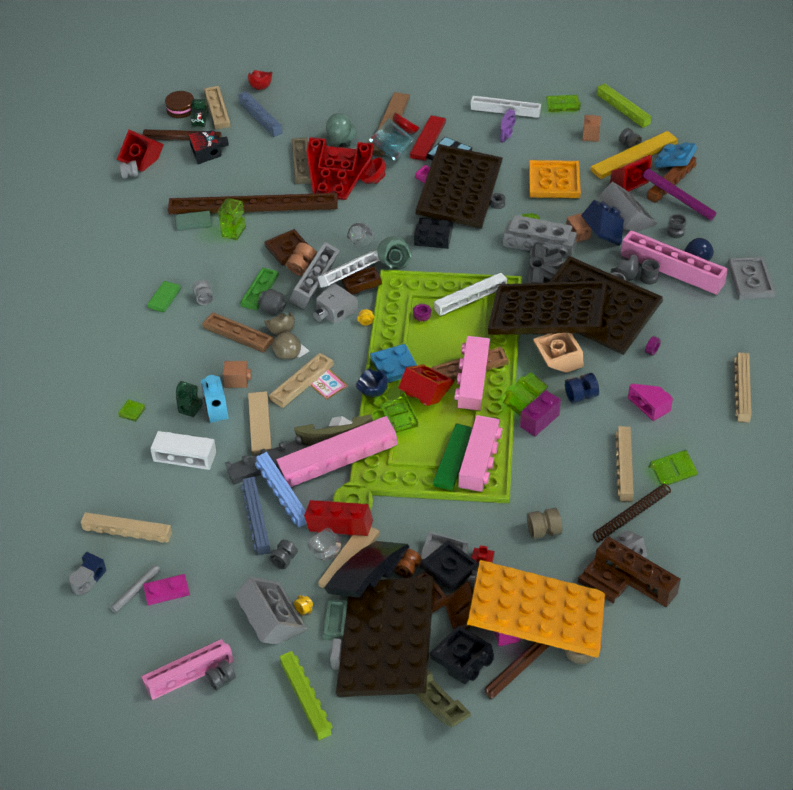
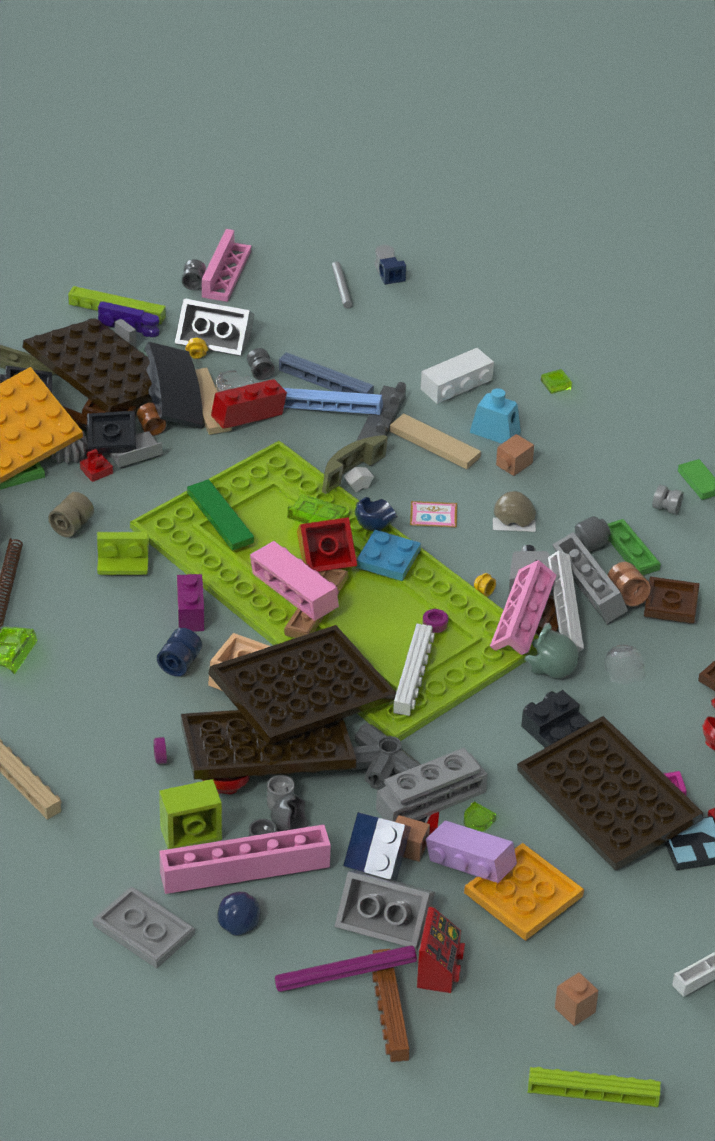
camera: 130 degrees right, 5 degrees down
(126, 527) = (412, 308): tan piece -> none
(166, 589) = (317, 298): dark pink plate -> none
(187, 396) = (520, 394): clear green leg -> none
(238, 332) = (581, 497): medium nougat tile -> none
(280, 323) = (549, 517): dark tan hair -> none
(301, 380) = (456, 497): tan tile -> none
(317, 668) = (138, 319): none -> dark purple hinge
(337, 451) = (329, 436): bright pink brick -> none
(354, 493) = (261, 434): lime tile -> none
(377, 270) = (524, 608): none -> bright pink fence
(479, 453) = (197, 524): bright pink brick -> none
(497, 201) = (552, 816): dark grey bush -> none
(506, 125) = (682, 923): medium lavender slope -> none
(524, 392) = (225, 605): clear neon green brick -> none
(539, 477) = (122, 553): none -> lime bracket
(562, 195) = (471, 851): none -> lavender brick
(570, 104) = (676, 1015): clear neon green piece -> none
(624, 463) = (59, 620): tan piece -> none
(628, 137) = (510, 1023): dark grey wheel -> none
(638, 151) = (480, 1013): yellow tile -> none
(650, 400) = (99, 690): dark pink slope -> none
(675, 155) = (420, 1033): dark azure plate -> none
(676, 225) = (301, 925): flat silver wheel -> none
(680, 293) = (190, 814): none -> lime brick

